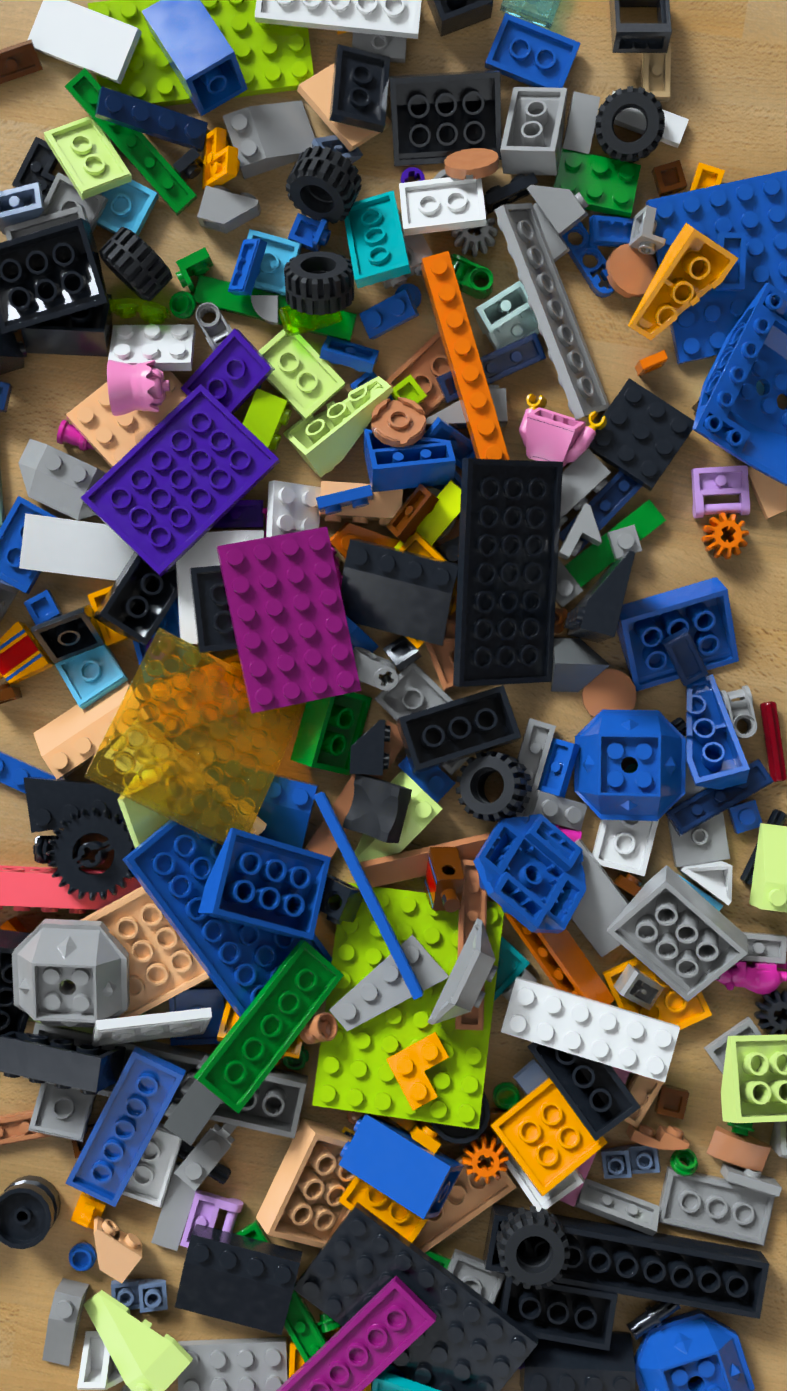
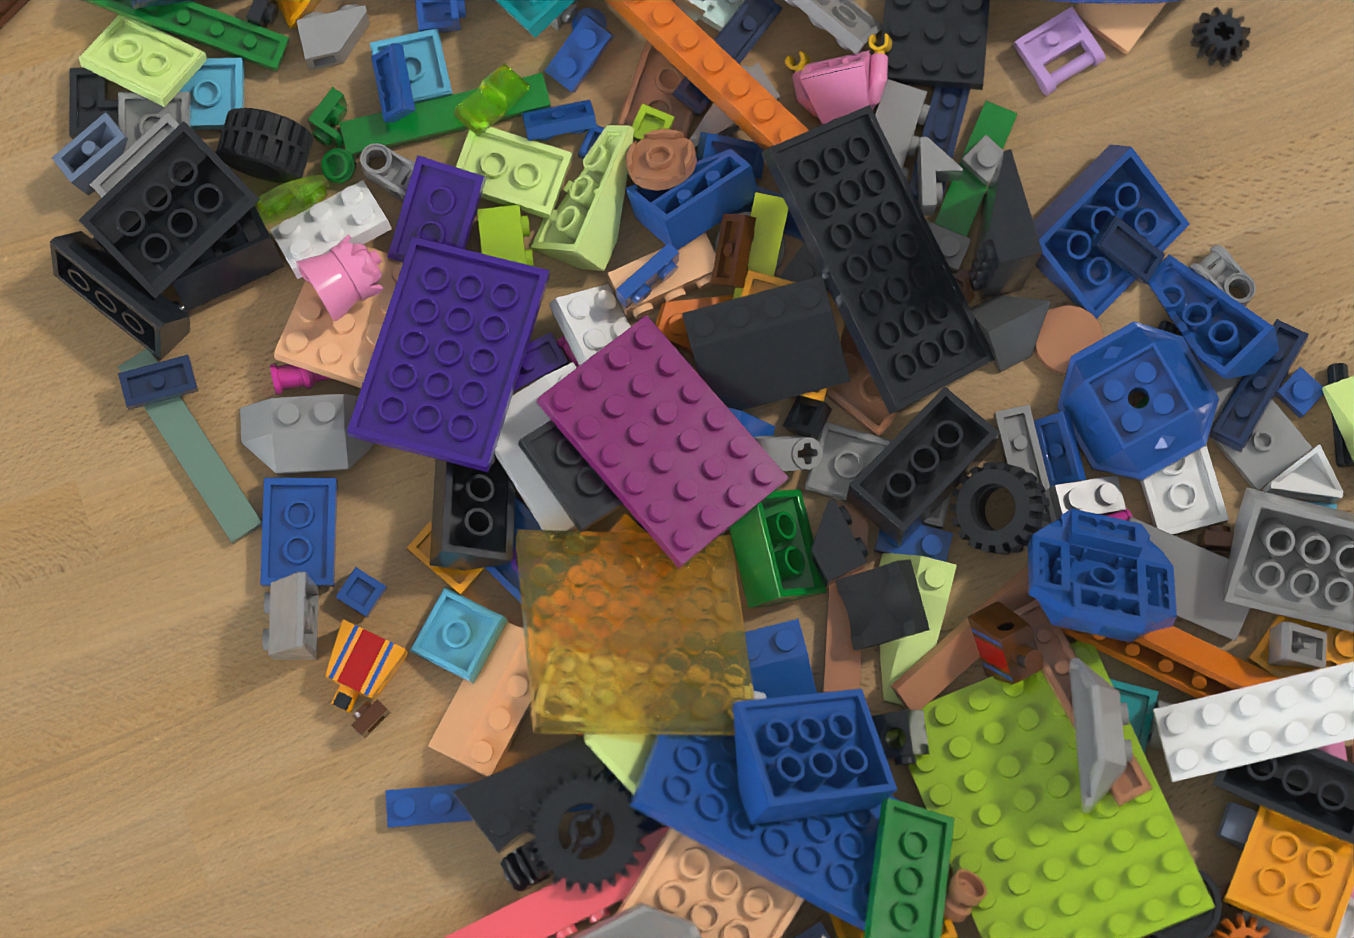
camera: 35 degrees left, 10 degrees down
(69, 634) = (413, 601): black slope -> none
(72, 548) = (363, 500): white tile -> none
(266, 307) = (437, 117): light grey tile -> none
(319, 283) = (485, 57): black tyre -> none
(369, 895) = (931, 705): blue tile -> none
(386, 987) = (1016, 791): light grey wing -> none
(410, 1068) = (1093, 877): light orange plate -> none
(505, 1095) = (1220, 864): green plate -> none
(716, 530) = (1106, 97): orange gear -> none
(773, 741) = (1281, 291): dark red axle -> none

